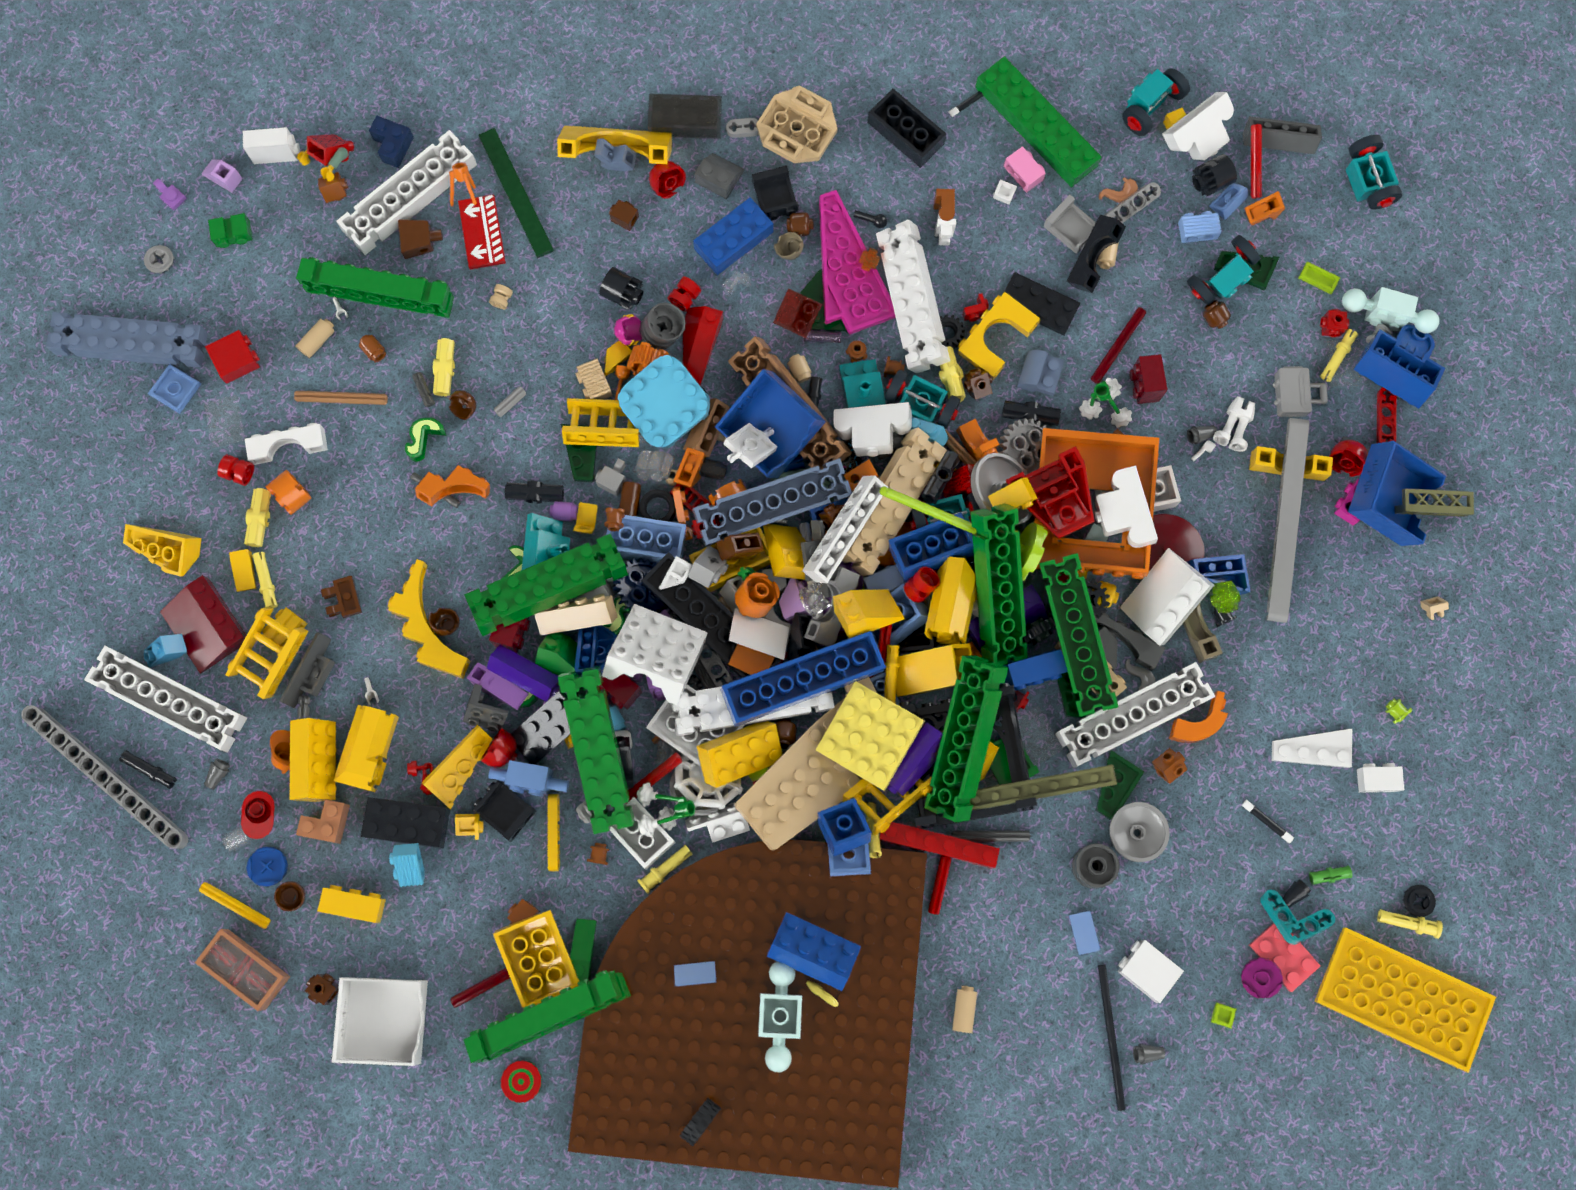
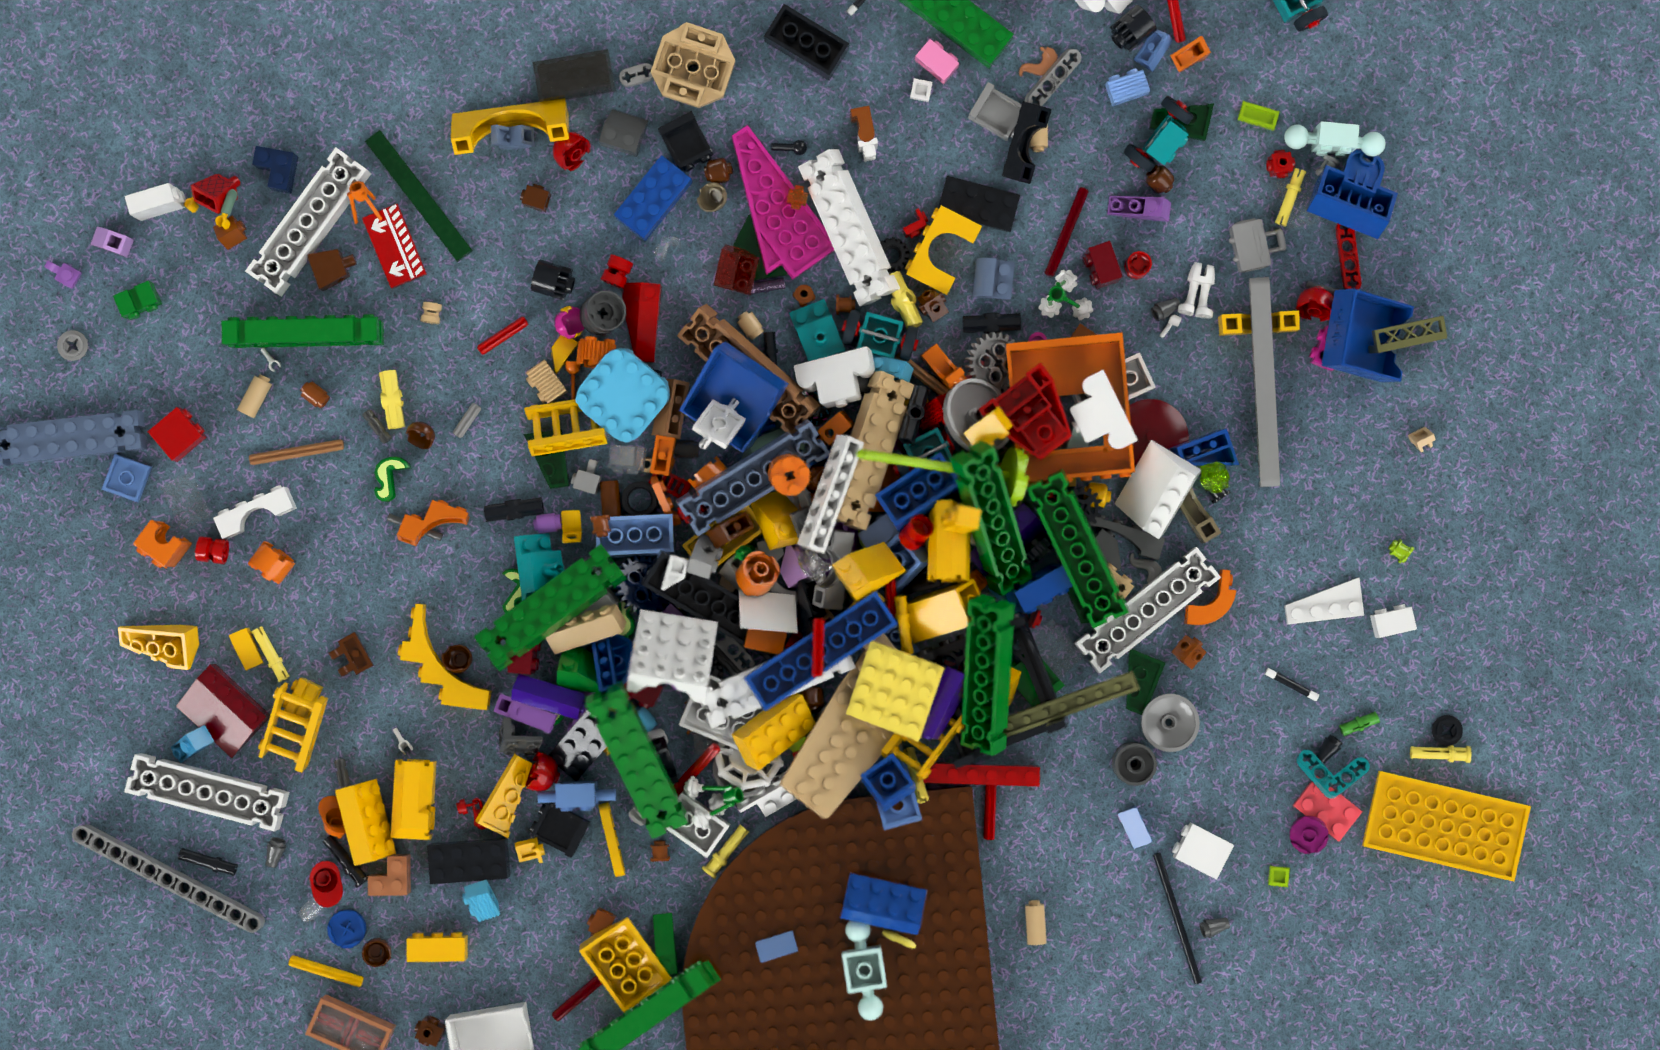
camera: 10 degrees left, 10 degrees up
(188, 453) = (153, 544): none -> orange piece
(257, 517) = (246, 593): light yellow piece -> none
(286, 806) = (346, 861): none -> black pin
(310, 673) = (340, 736): dark grey bracket -> none
(563, 331) = (502, 335): none -> red axle
(802, 671) = (818, 647): none -> red axle
(819, 502) = (790, 485): none -> orange brick
(970, 574) = (961, 519): none -> yellow brick
(993, 836) = (1030, 754): dark grey axle -> none
(1182, 387) = (1137, 265): none -> red wheel
(1197, 337) = (1140, 207): none -> medium lavender slope

